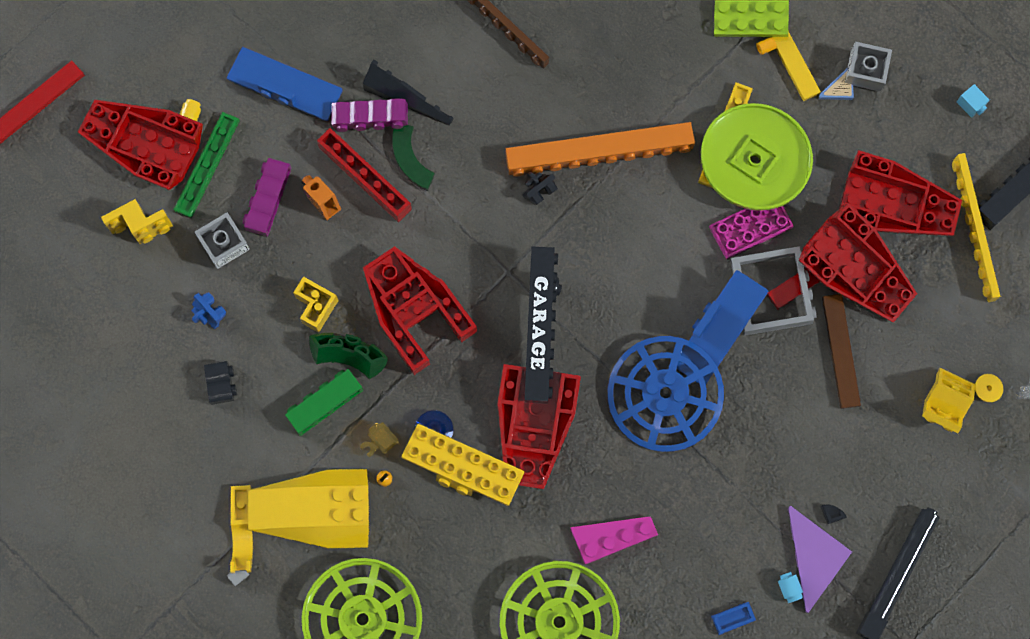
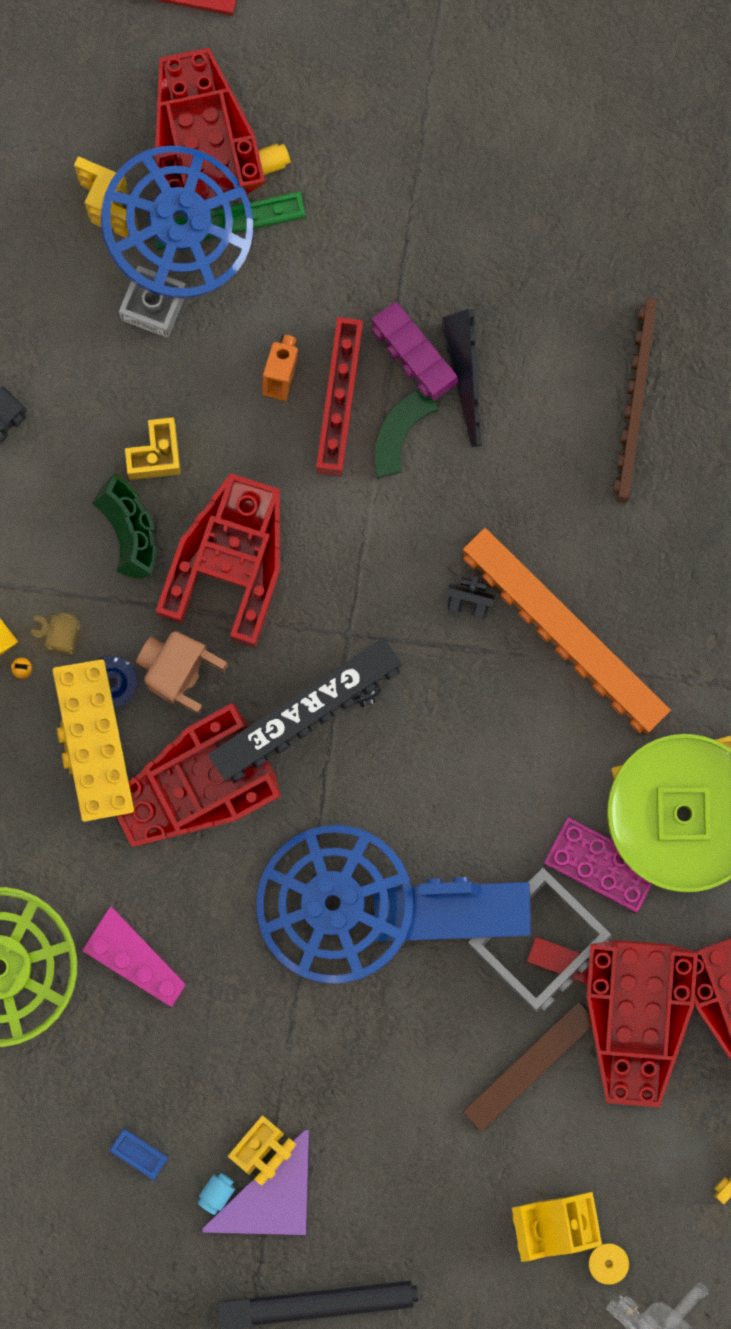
camera: 55 degrees right, 5 degrees up
(183, 196) = (166, 230): none -> blue dish
(204, 312) = (69, 334): blue hips -> none
(267, 197) = (239, 312): magenta brick -> none
(284, 84) = (382, 233): blue bracket -> none
(323, 402) = (56, 542): green brick -> none
(454, 385) = (175, 667): none -> nougat piece
(778, 543) = (256, 1145): none -> yellow plate
(832, 513) = (334, 1184): black tile -> none

